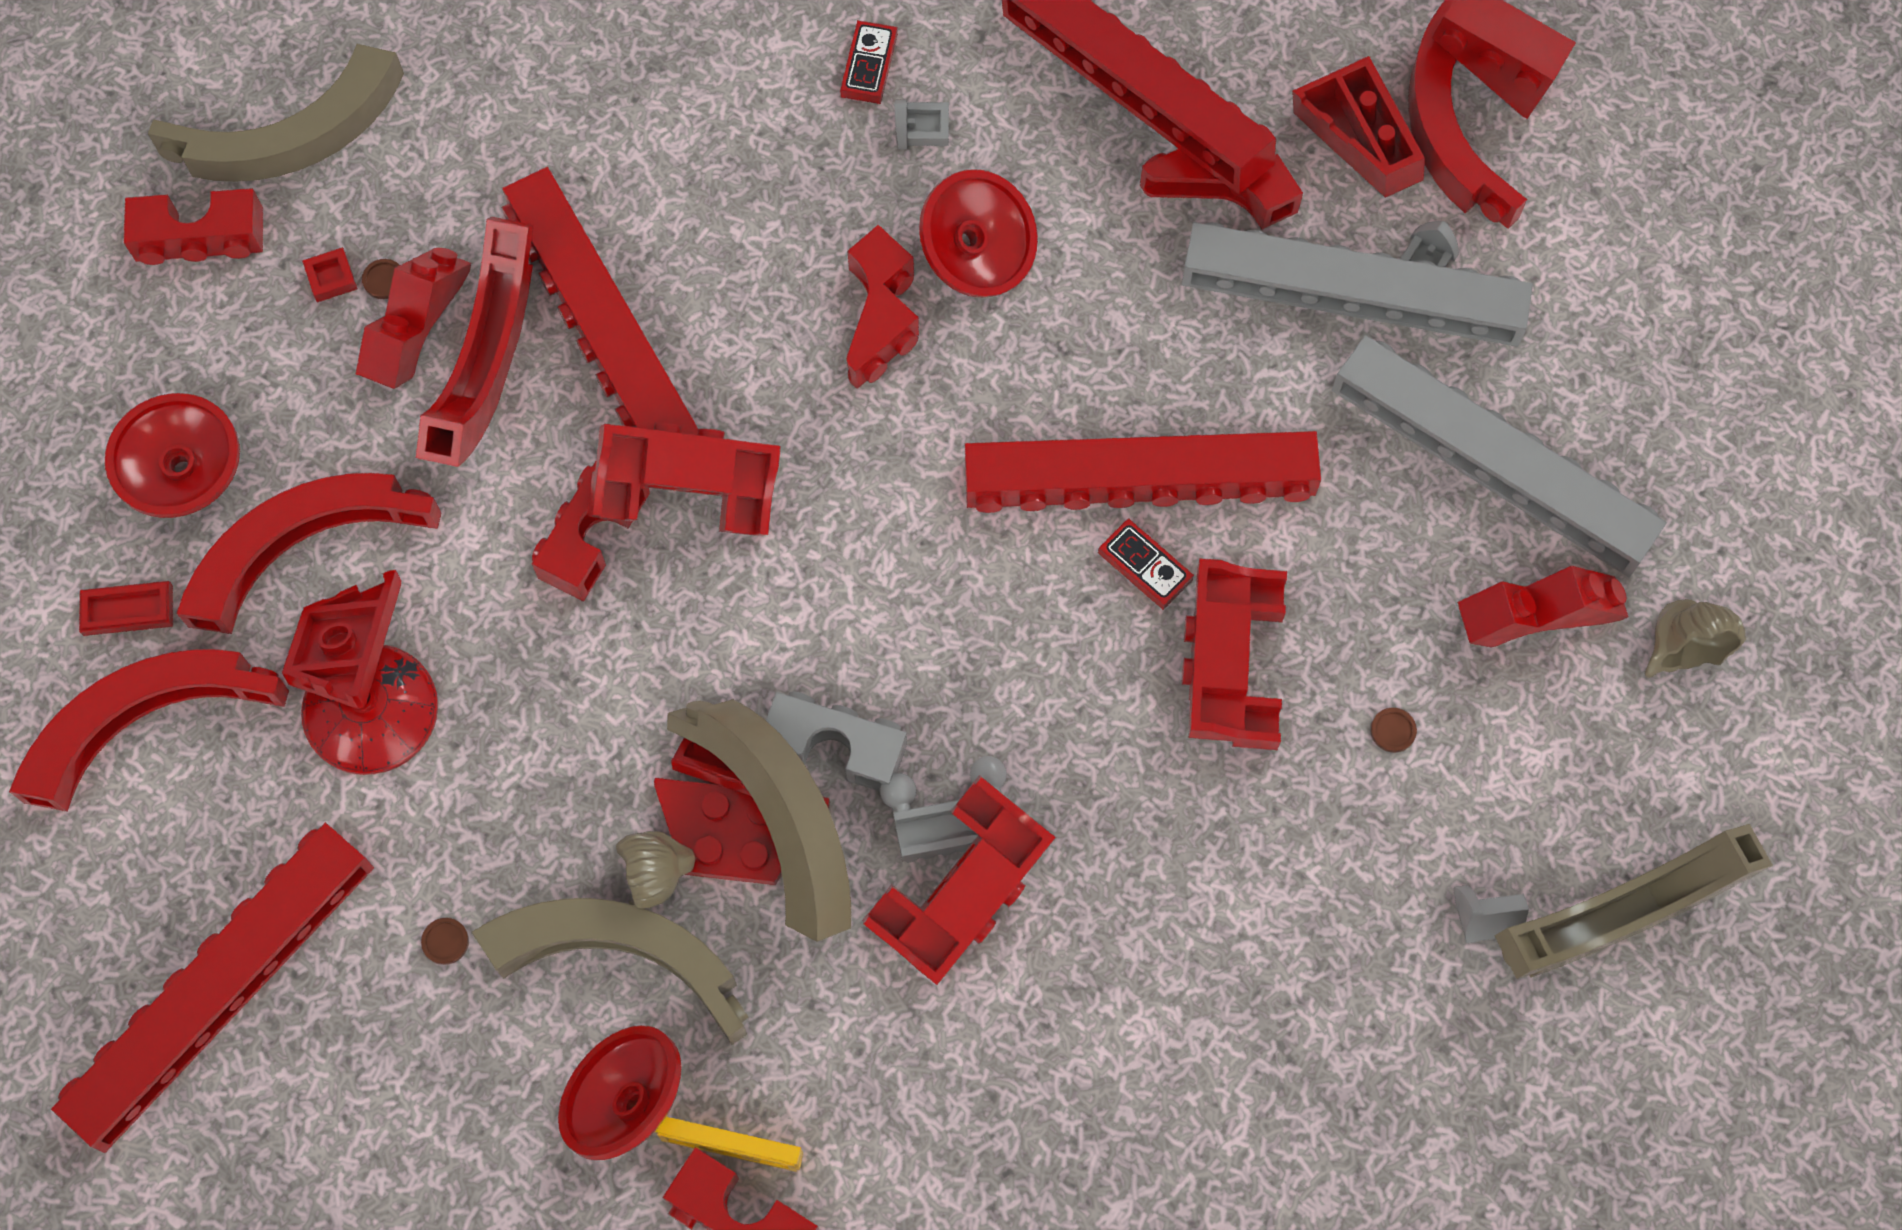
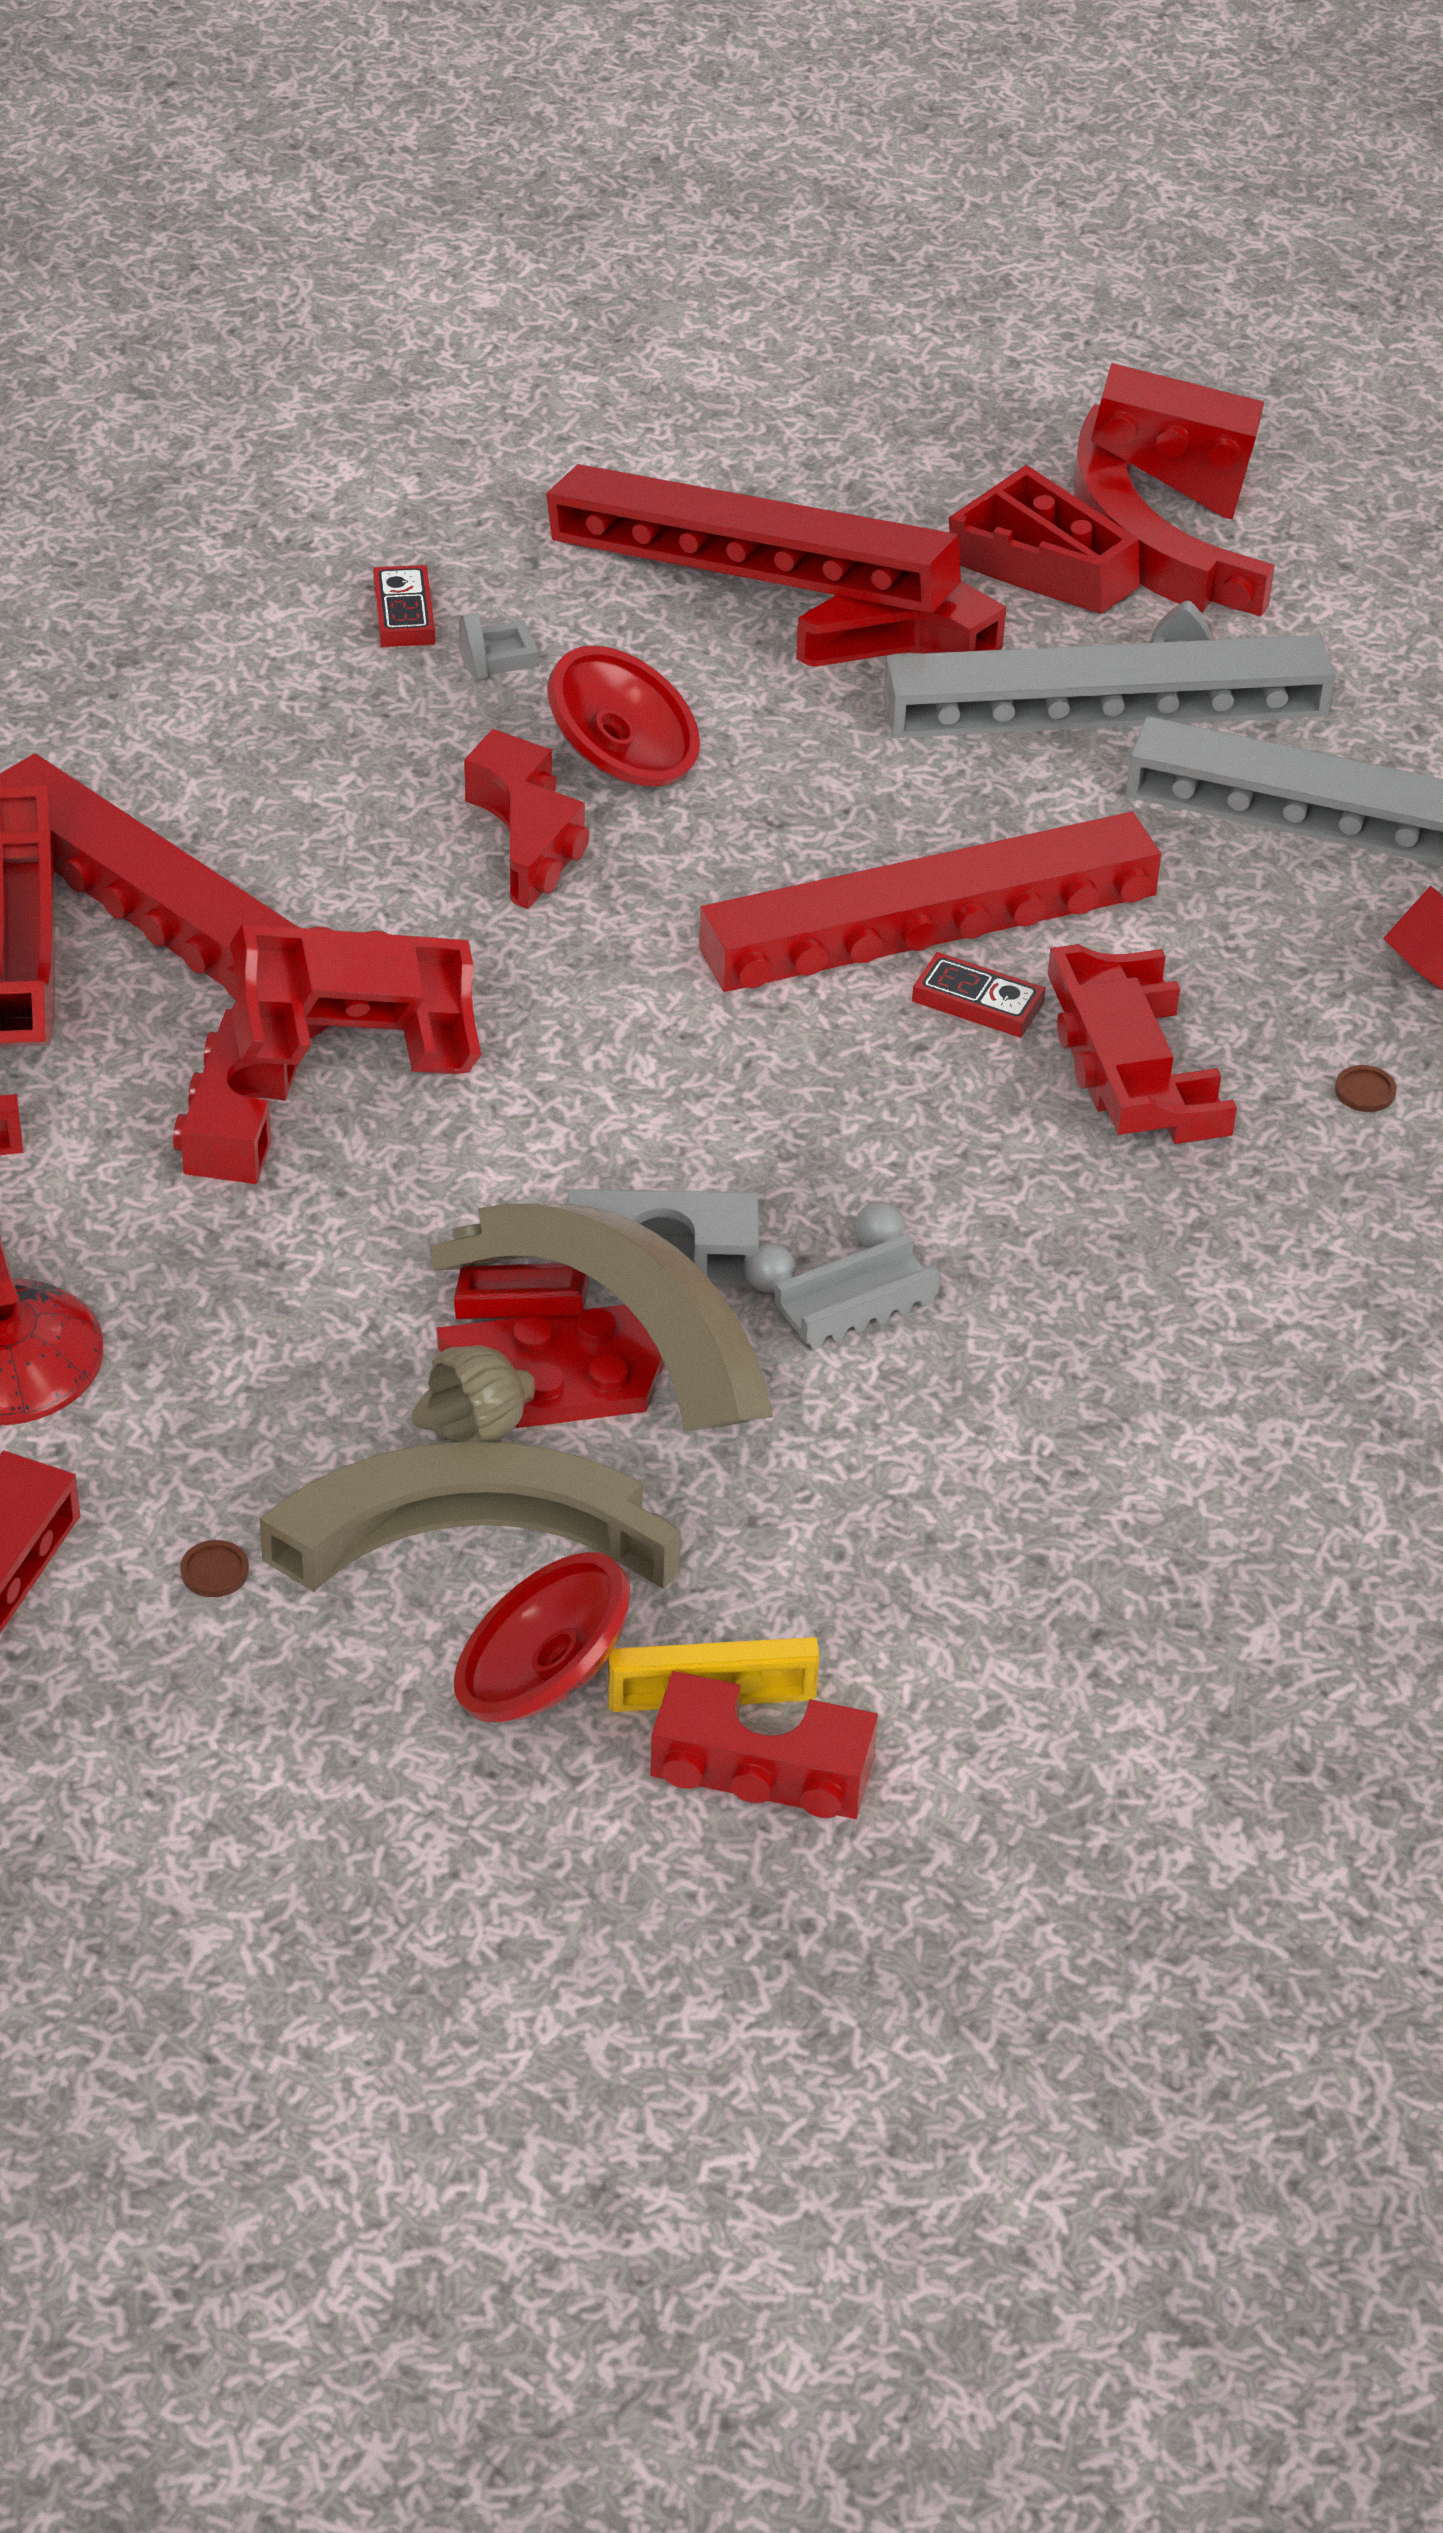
camera: 20 degrees left, 25 degrees down
(972, 890) = (910, 1358): red bracket -> none

